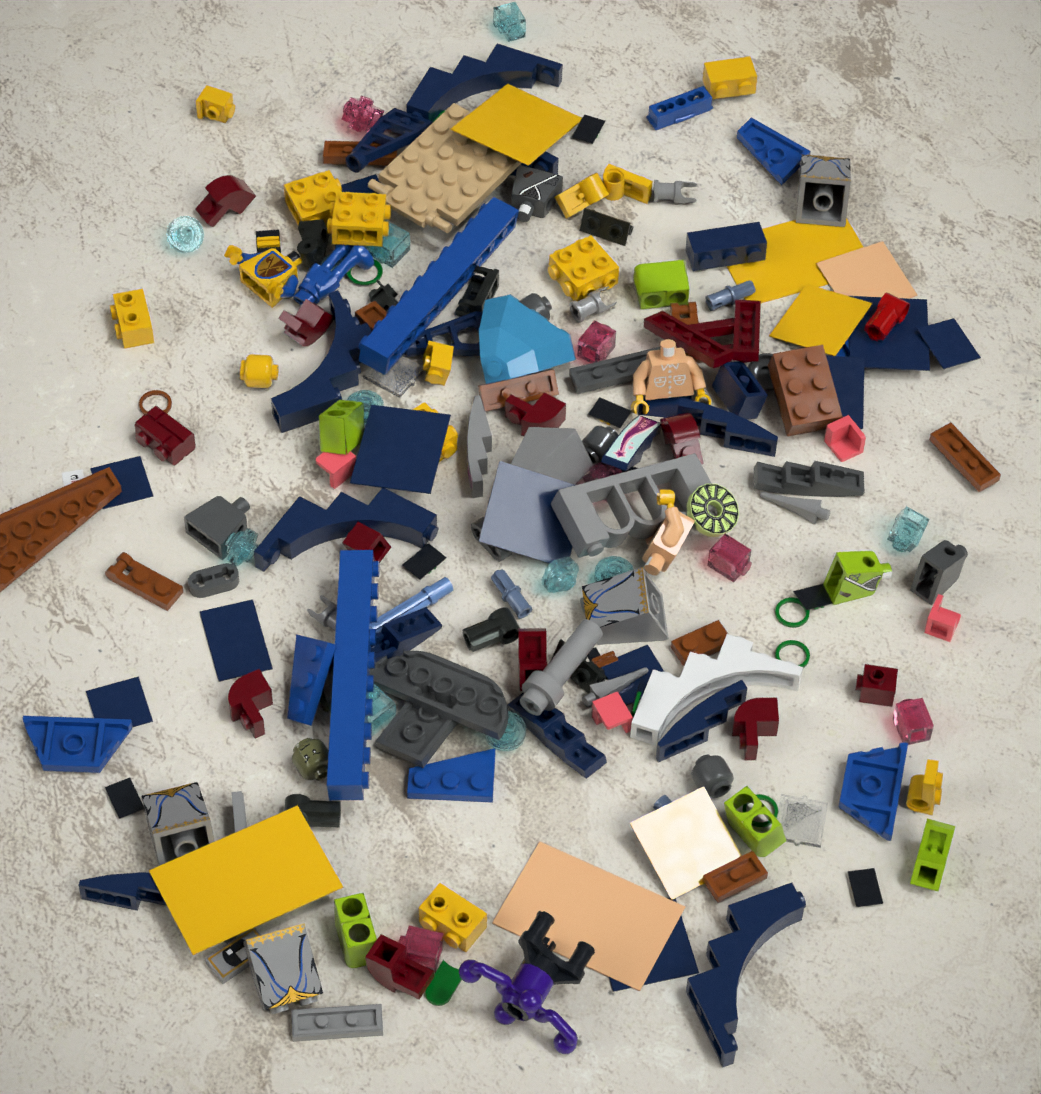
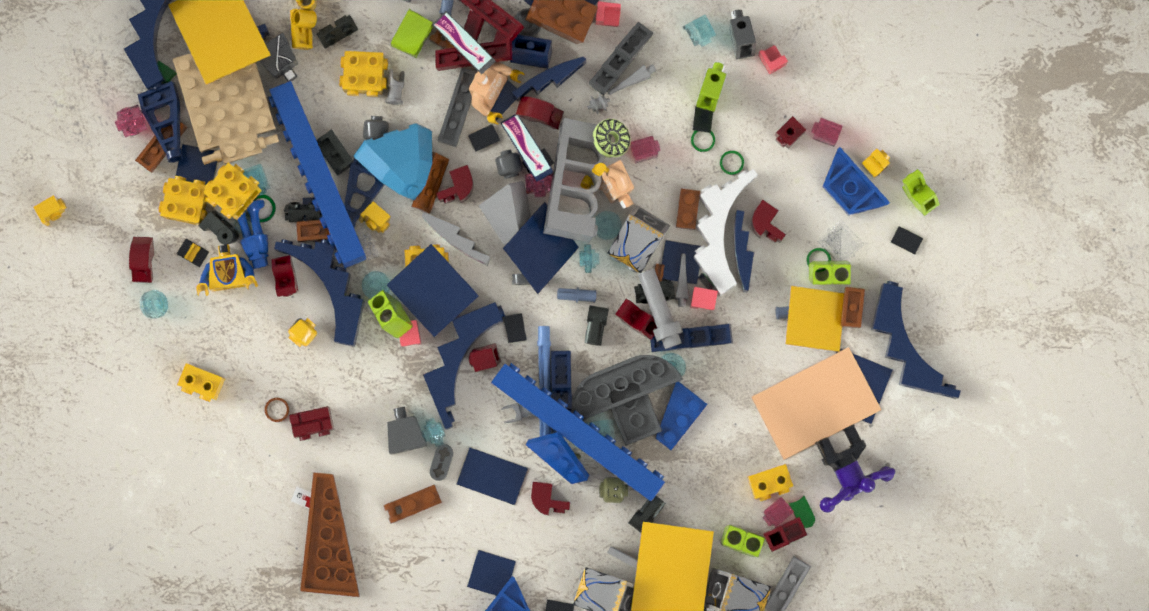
camera: 50 degrees left, 30 degrees up
(132, 479) = (324, 461): dark blue piece -> none
(596, 342) = (430, 109): clear pink brick -> none
(691, 316) = (464, 42): none -> slope
(713, 775) = (783, 272): dark grey head -> none
(741, 487) = (598, 103): none -> light grey wheel

